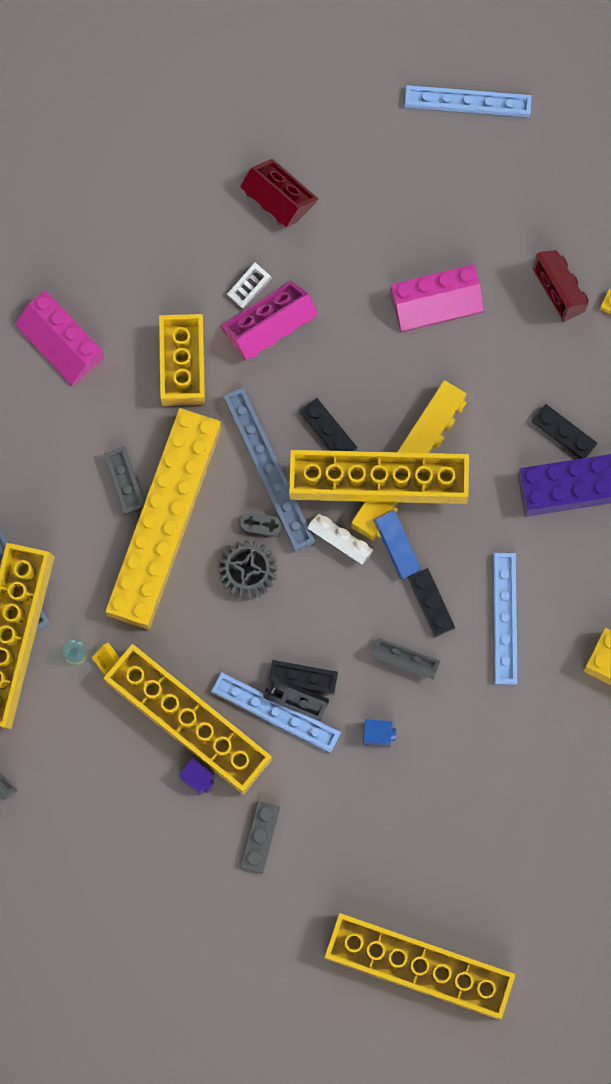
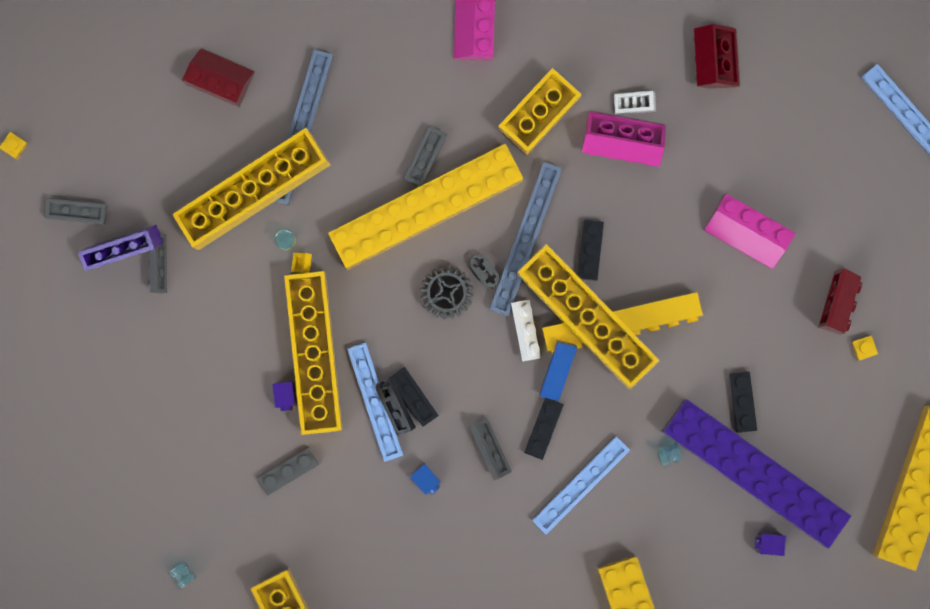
camera: 45 degrees right, 10 degrees up
(256, 1007) = (182, 575): none -> clear light blue wheel
(549, 526) = (669, 454): none -> clear light blue wheel

